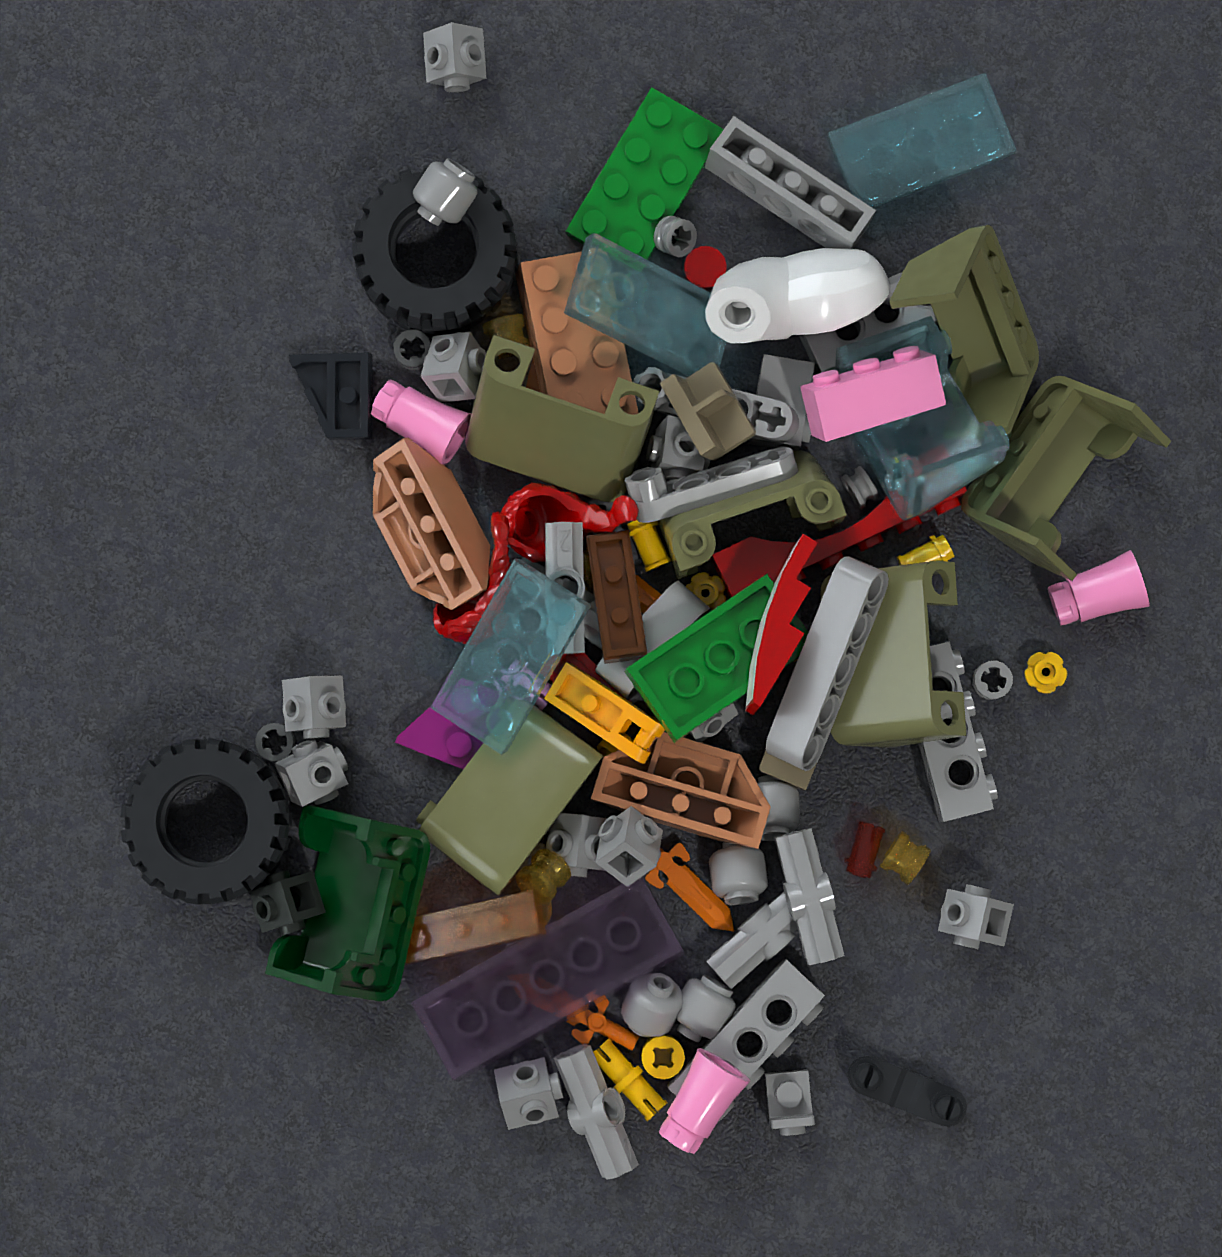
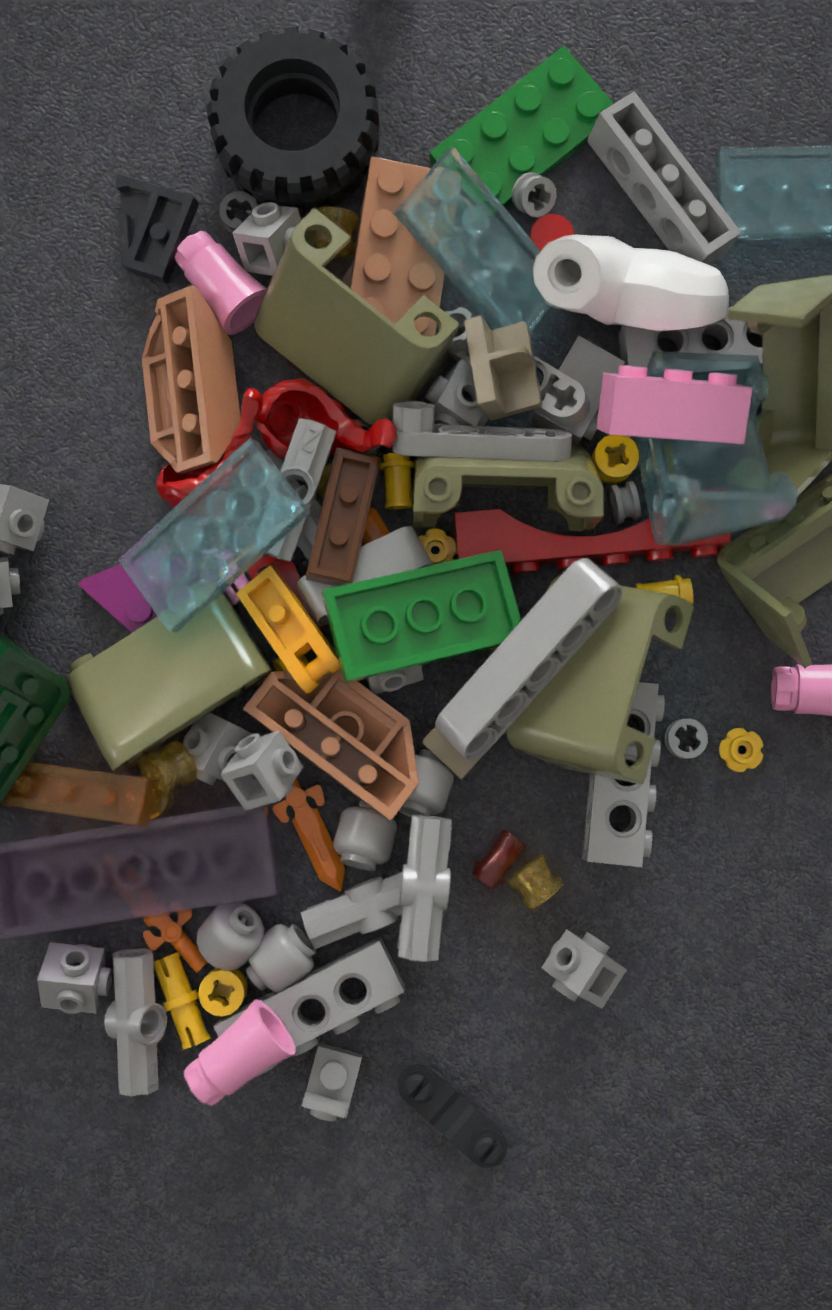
camera: 20 degrees right, 0 degrees up
(445, 192) = (319, 52): light grey head -> none
(775, 635) = (487, 611): red slope -> none
(835, 459) = (610, 466): none -> yellow wheel

